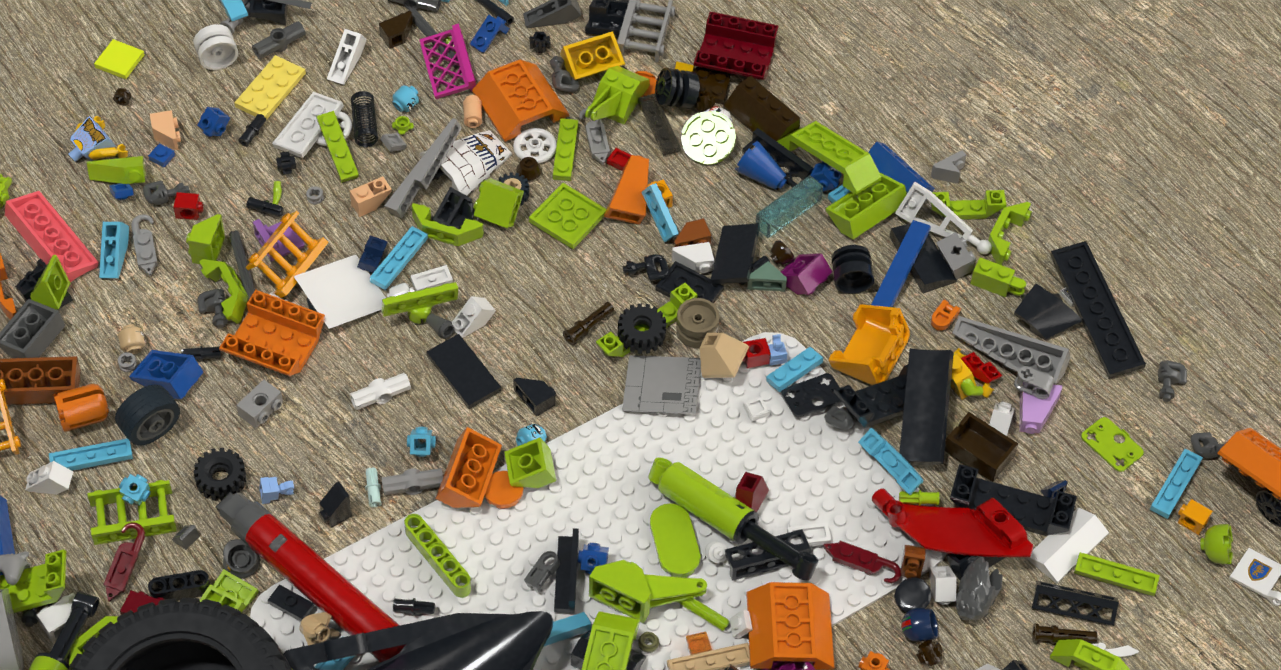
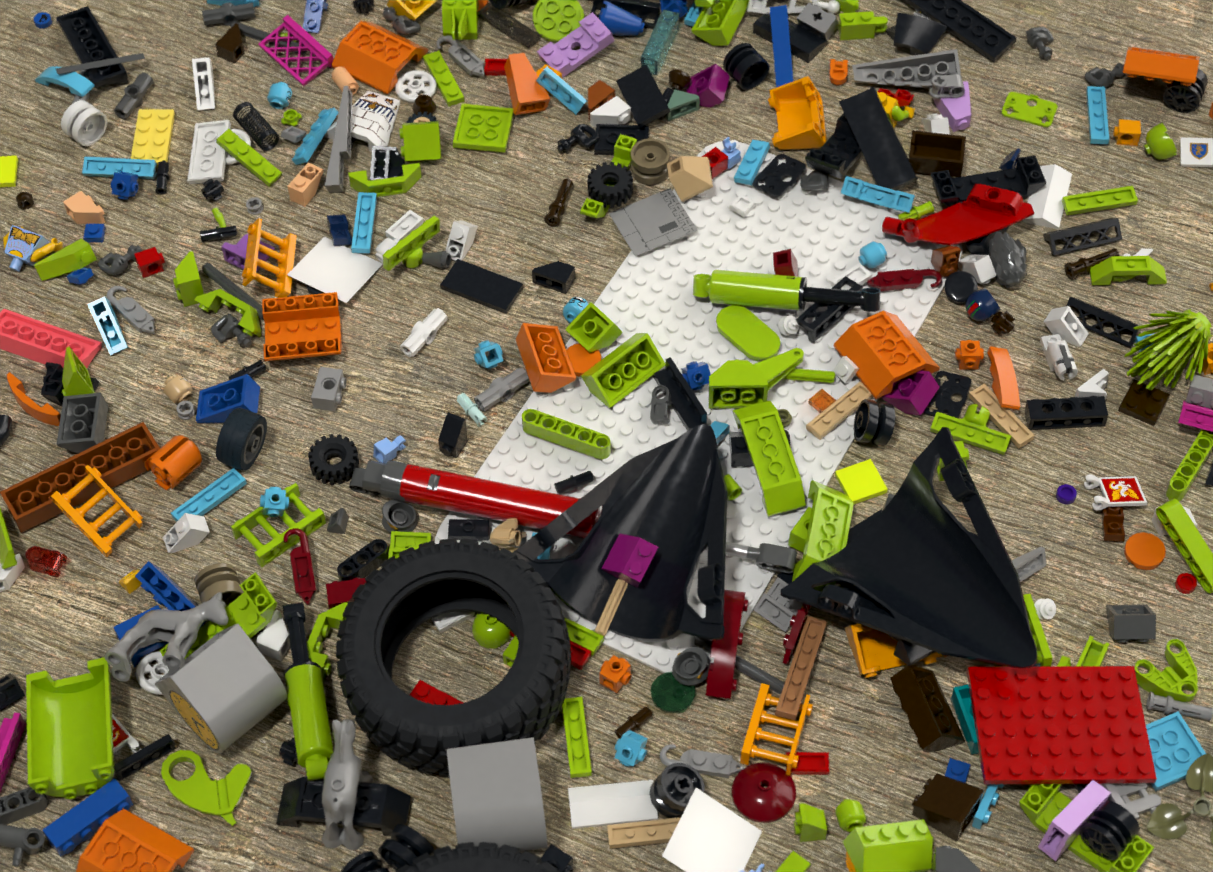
camera: 25 degrees left, 0 degrees up
(38, 540) = (218, 578): none -> dark tan wheel
(213, 98) = (107, 166): none -> medium azure plate
(407, 154) = (315, 135): none -> medium azure plate
(532, 518) = (623, 369): none -> lime slope
(686, 179) = (590, 36): none -> lavender piece
(845, 520) = (872, 255): none -> medium azure head

